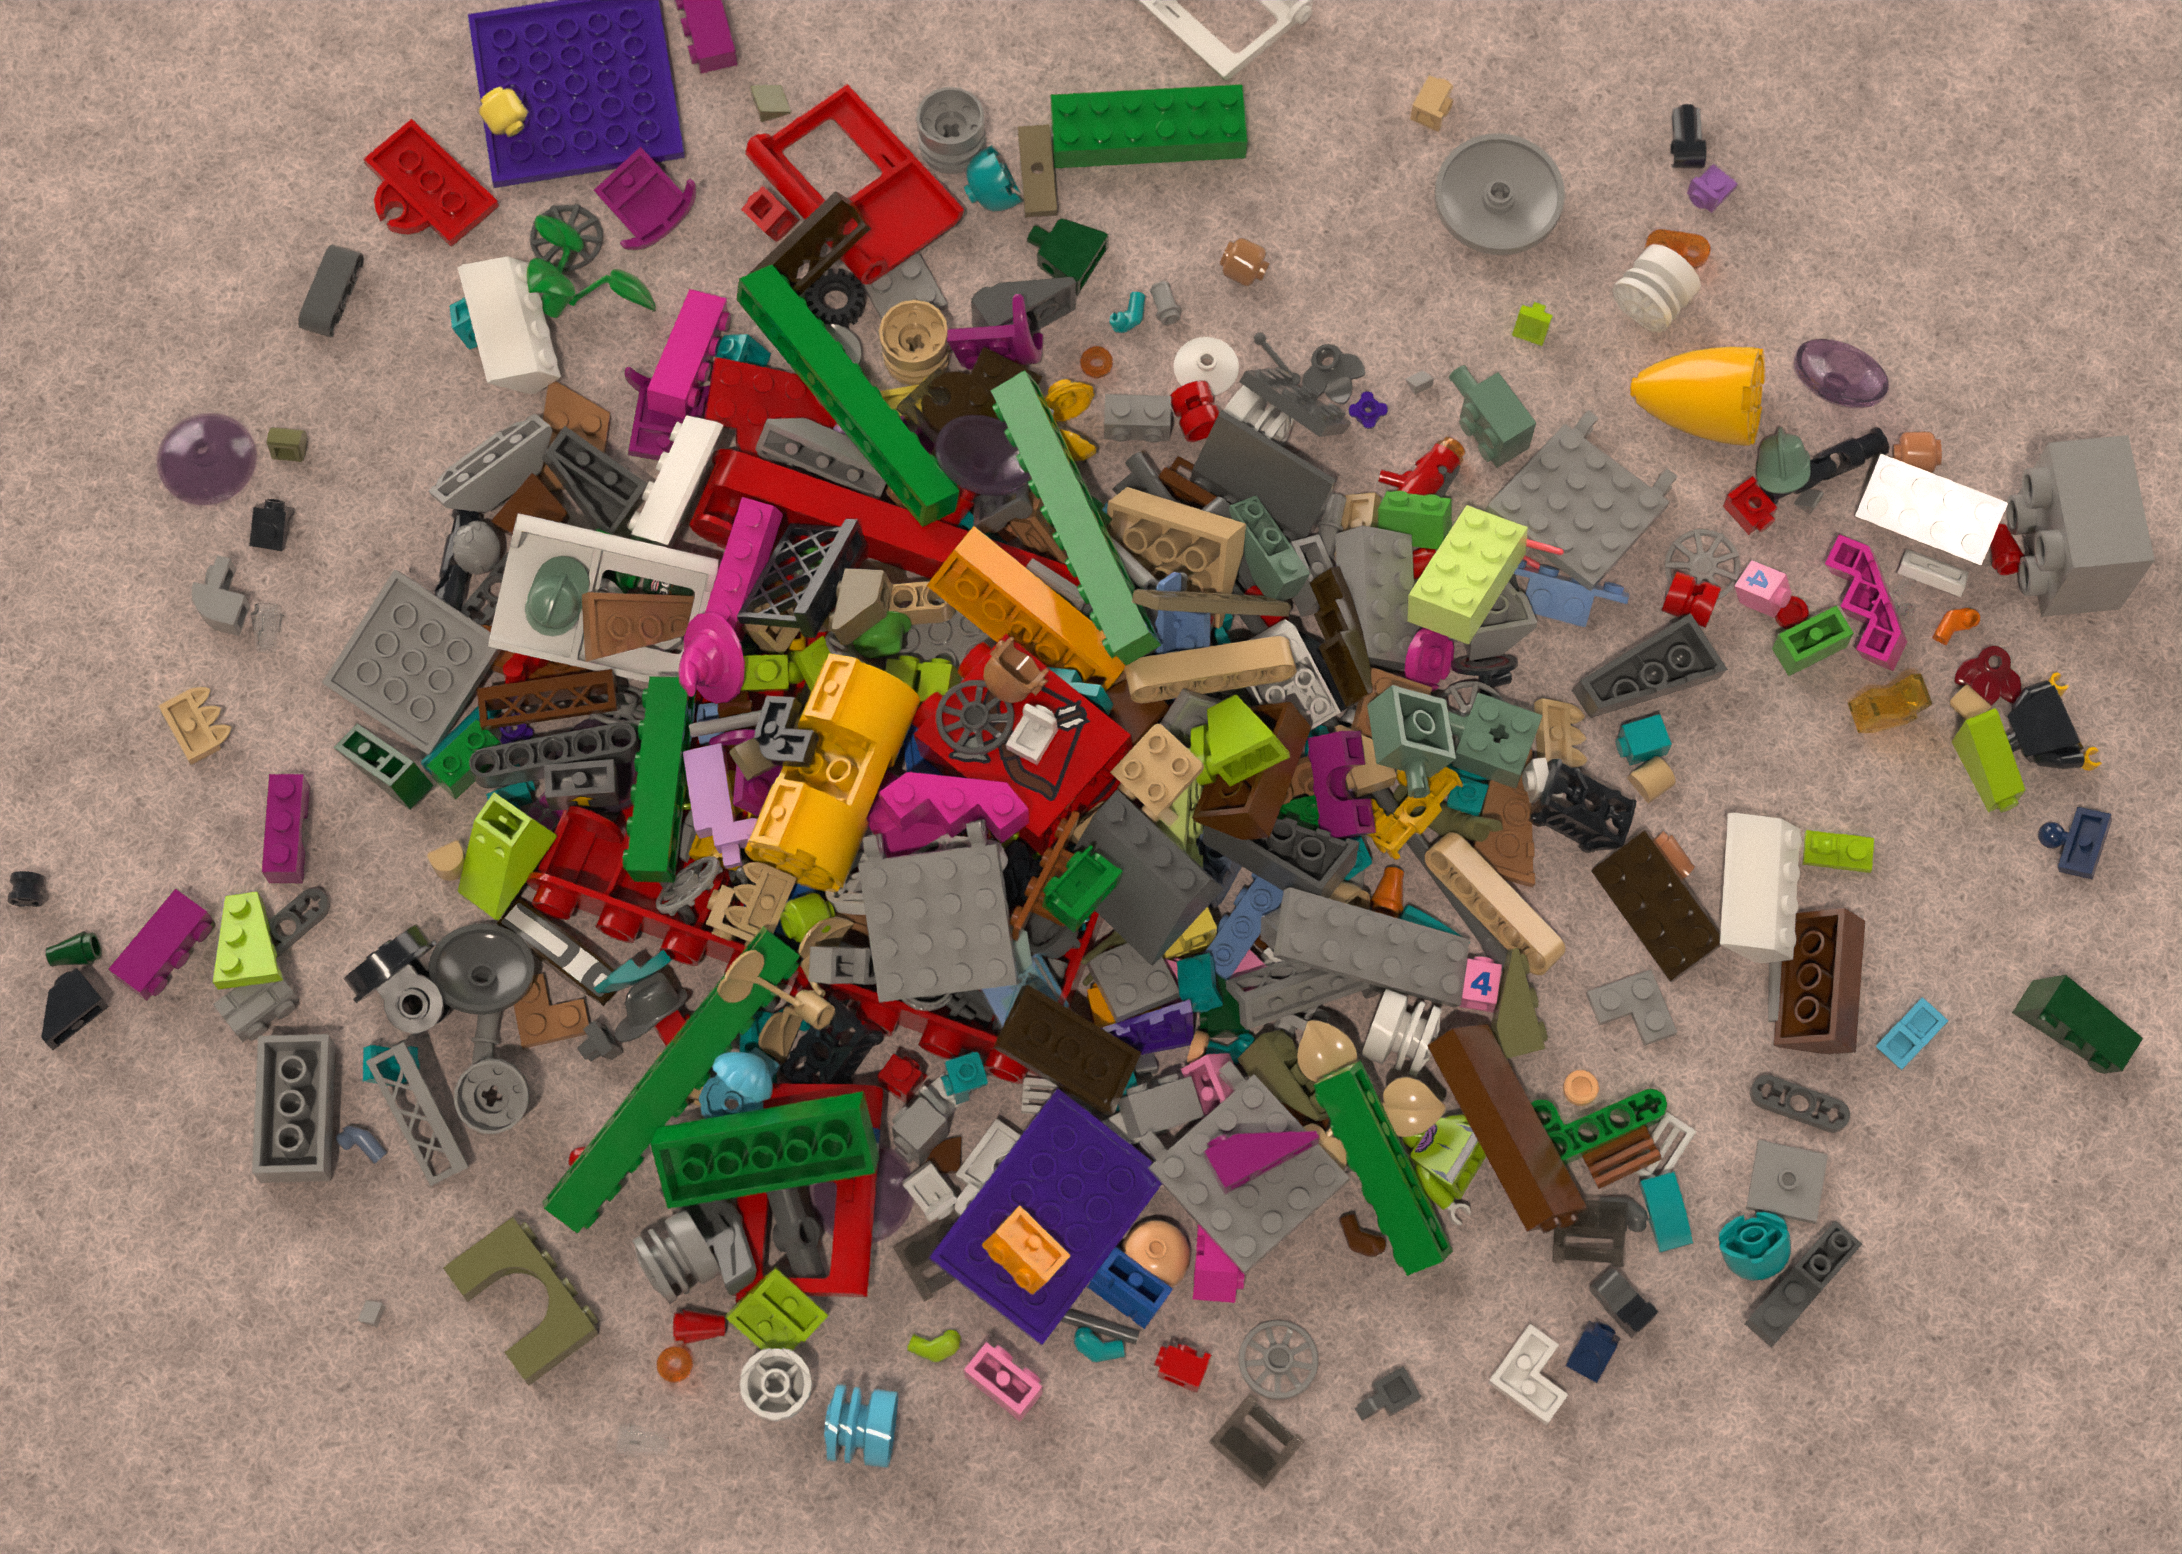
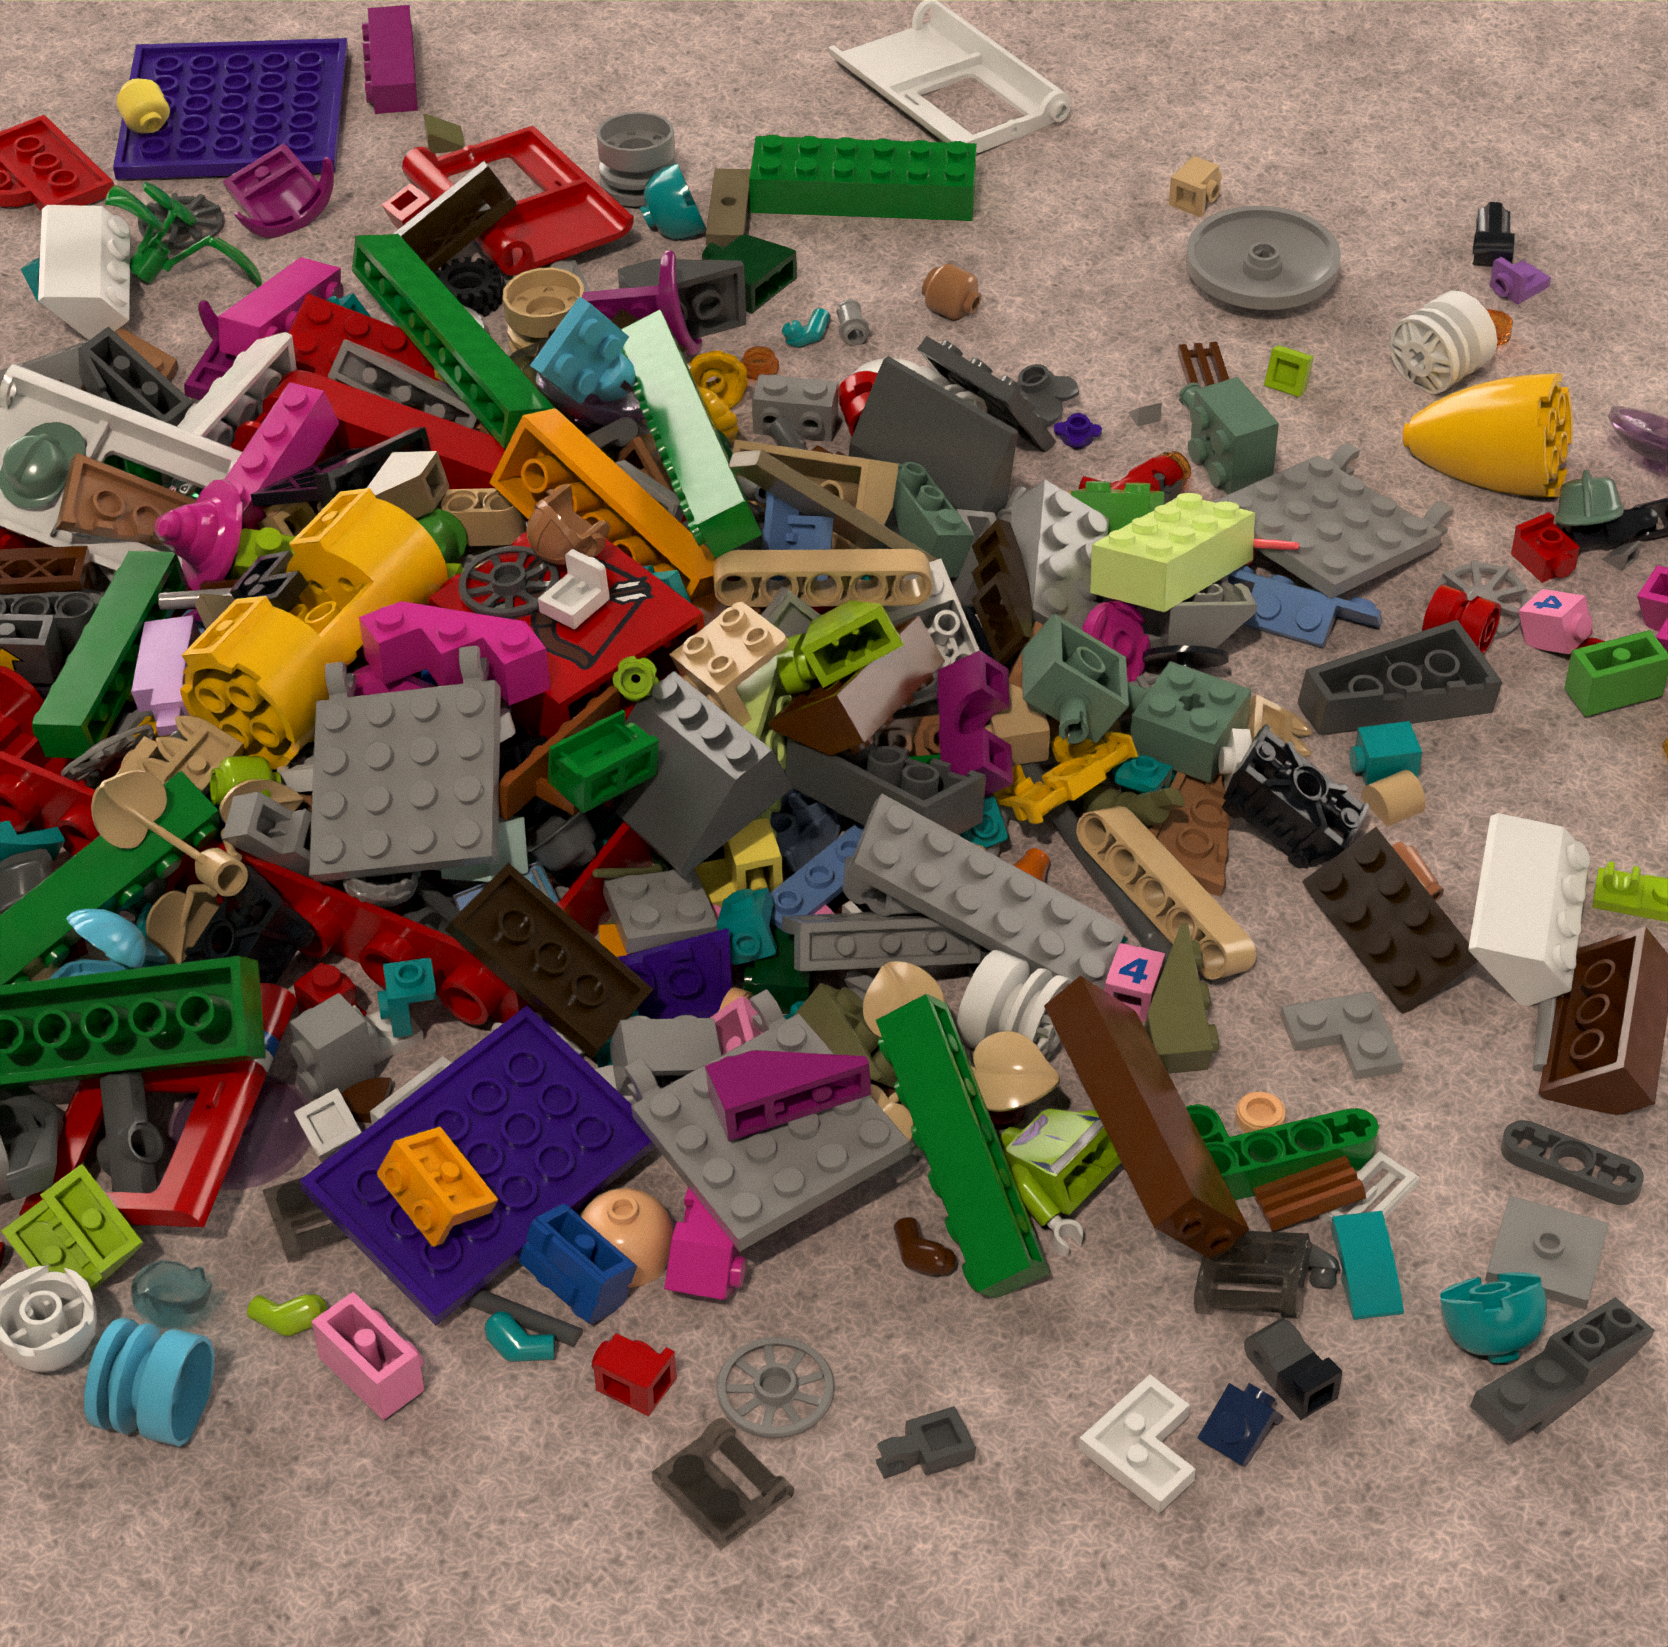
camera: 10 degrees right, 25 degrees down
(841, 1345) = (159, 1285): none -> clear light blue hair
(990, 459) = (586, 356): none -> medium azure plate
(1092, 810) = (623, 678): none -> lime plate
(1456, 303) = (1200, 354): none -> reddish brown tile

